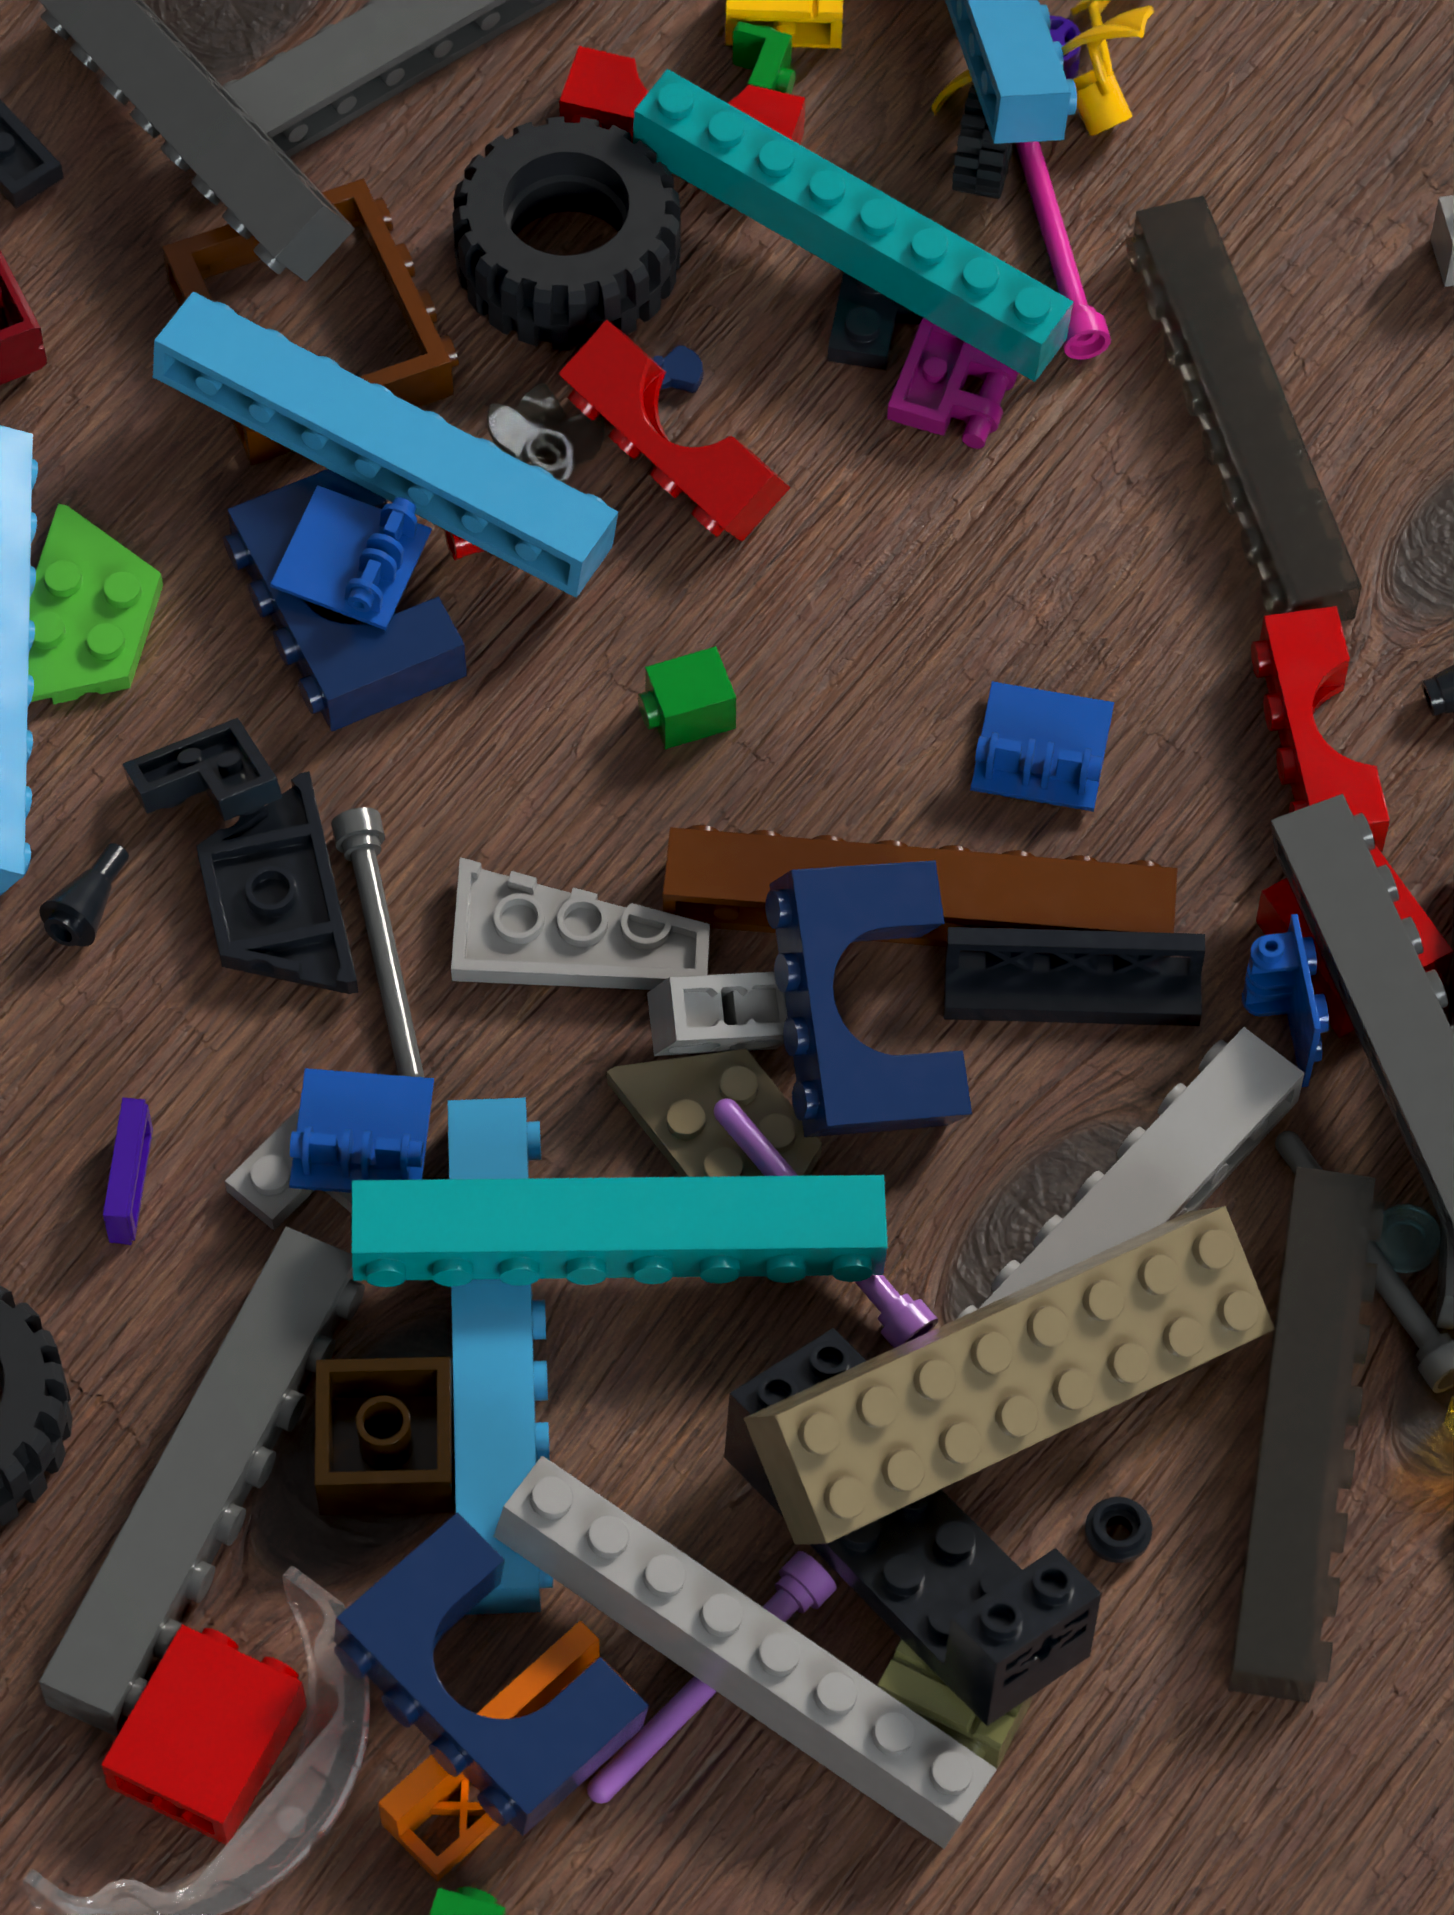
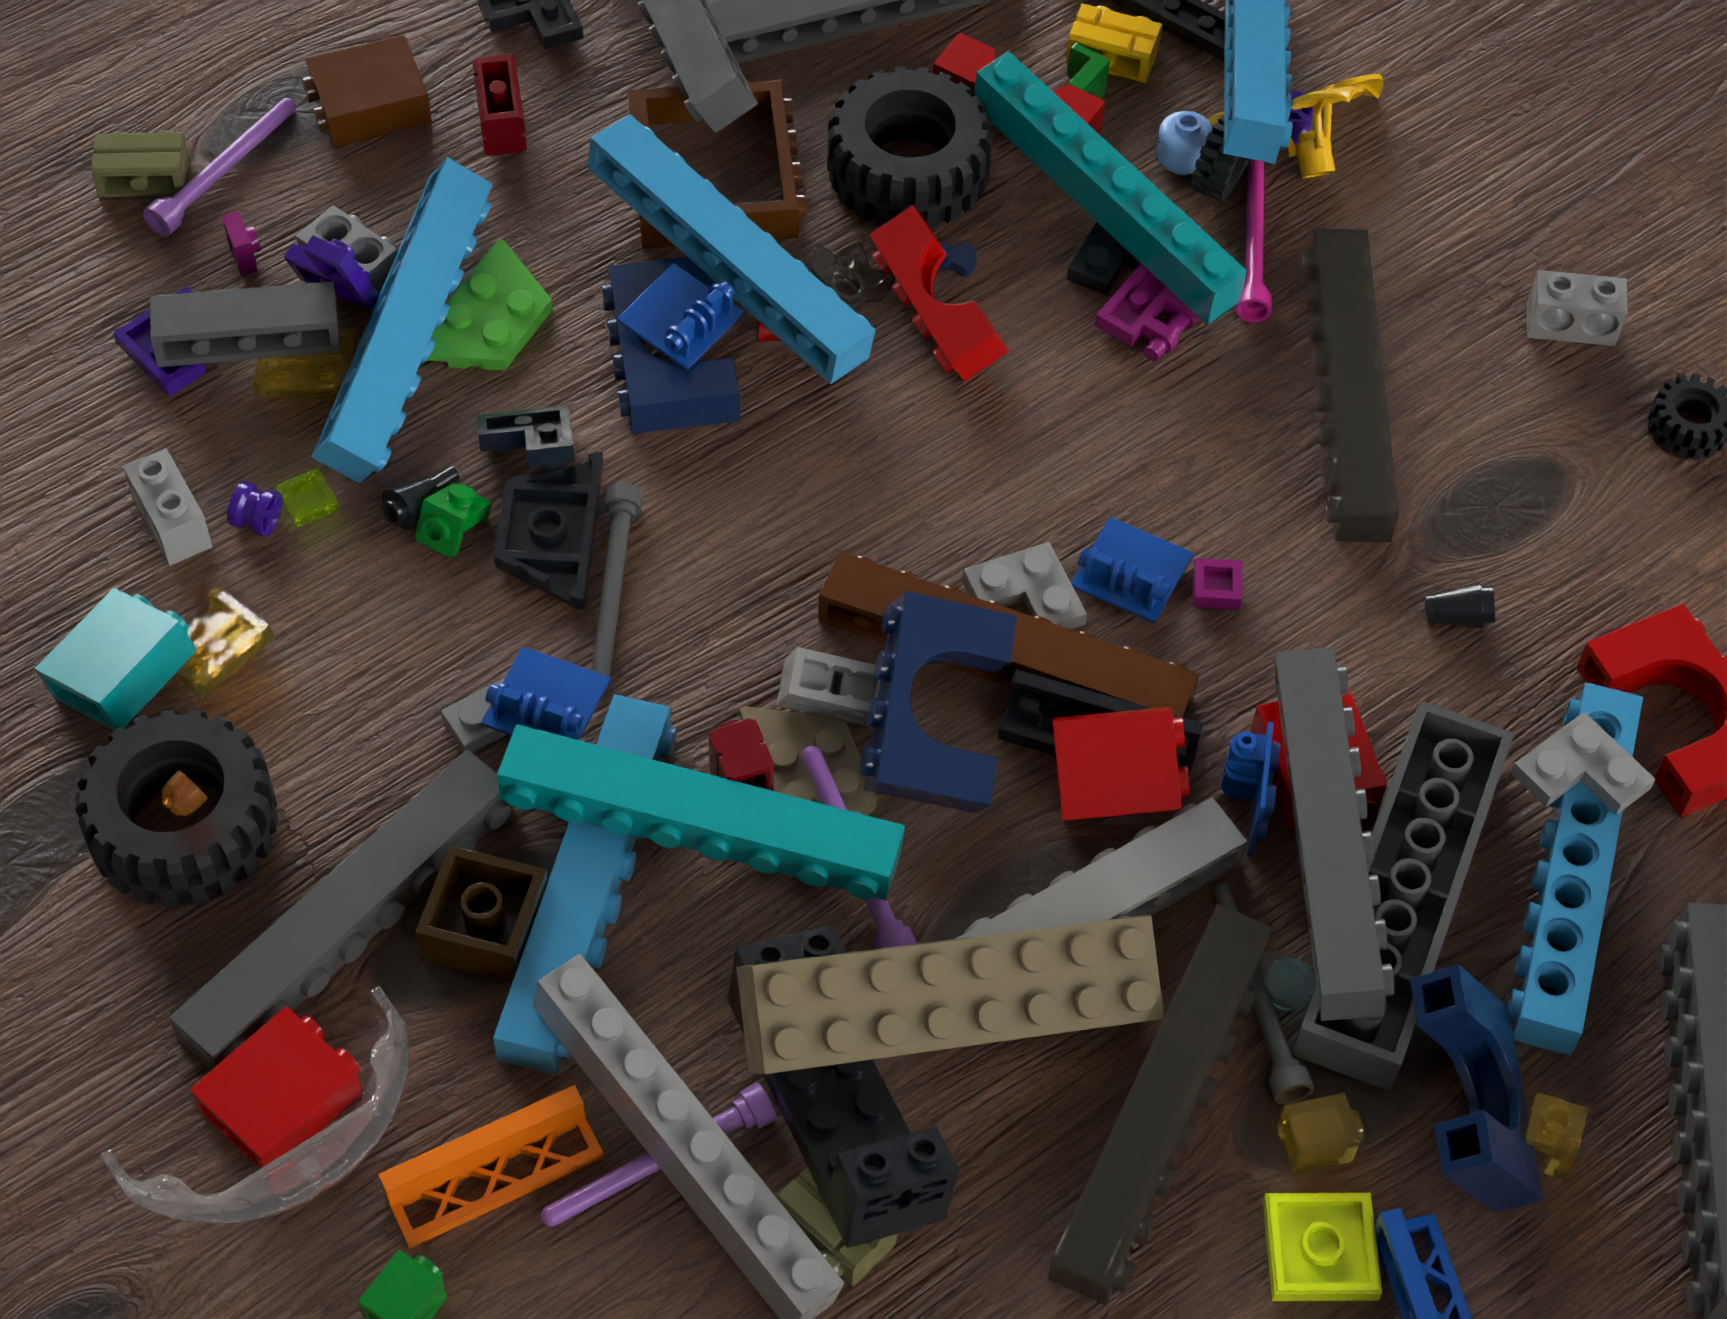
camera: 15 degrees right, 5 degrees down
(128, 1171) = (374, 685): dark purple tile -> none
(139, 915) = (448, 516): none -> green bracket
(514, 1763) = (487, 1173): dark blue arch -> none
(547, 936) = (726, 604): light grey wing -> none
(643, 1140) = (740, 754): none -> dark red brick
(688, 698) = (887, 471): green brick -> none
(920, 792) = (1031, 578): none -> light grey plate
(924, 128) = (1181, 141): none -> light blue head
(1116, 1015) = (1119, 763): none -> red brick
(1123, 1512) = (1002, 1121): black plate -> none
(1157, 737) = (1217, 583): none -> magenta plate
(1303, 667) = (1341, 564): red arch -> none

